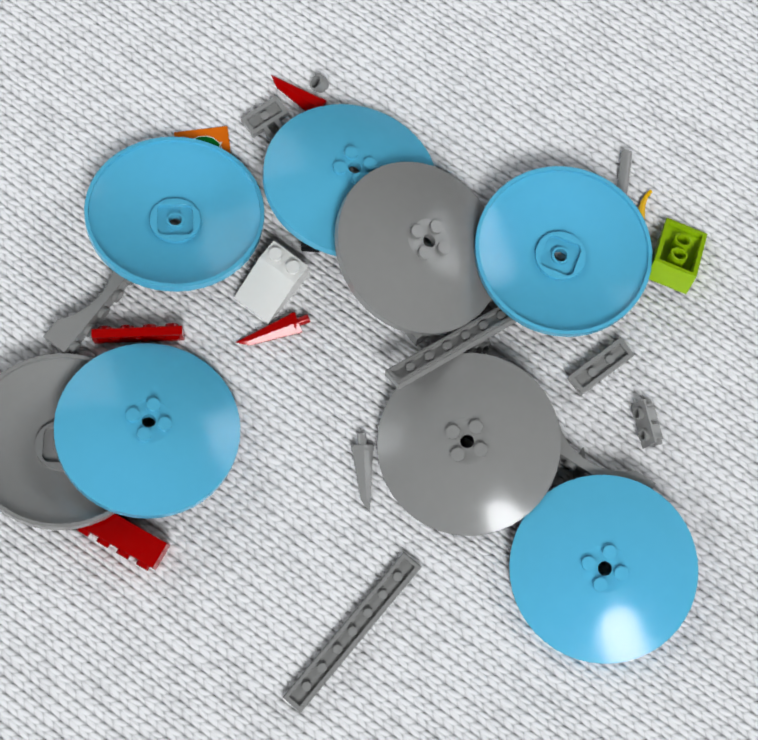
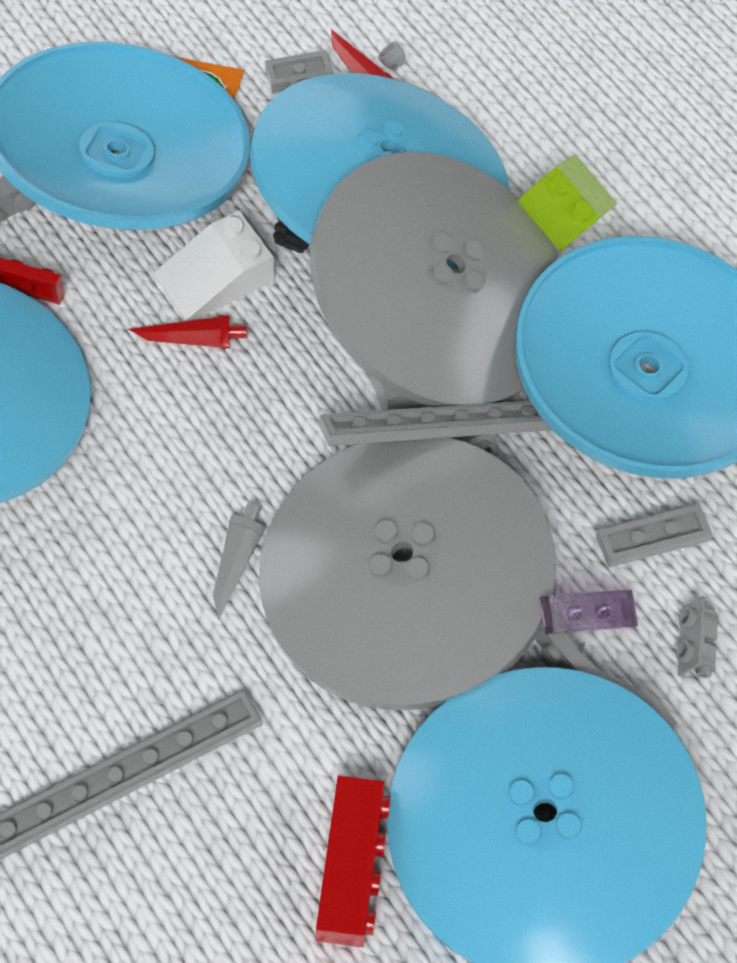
camera: 20 degrees right, 15 degrees down
(474, 159) = (566, 202): none -> lime slope
(505, 631) = (350, 862): none -> red brick
(583, 434) = (588, 611): none -> clear purple tile

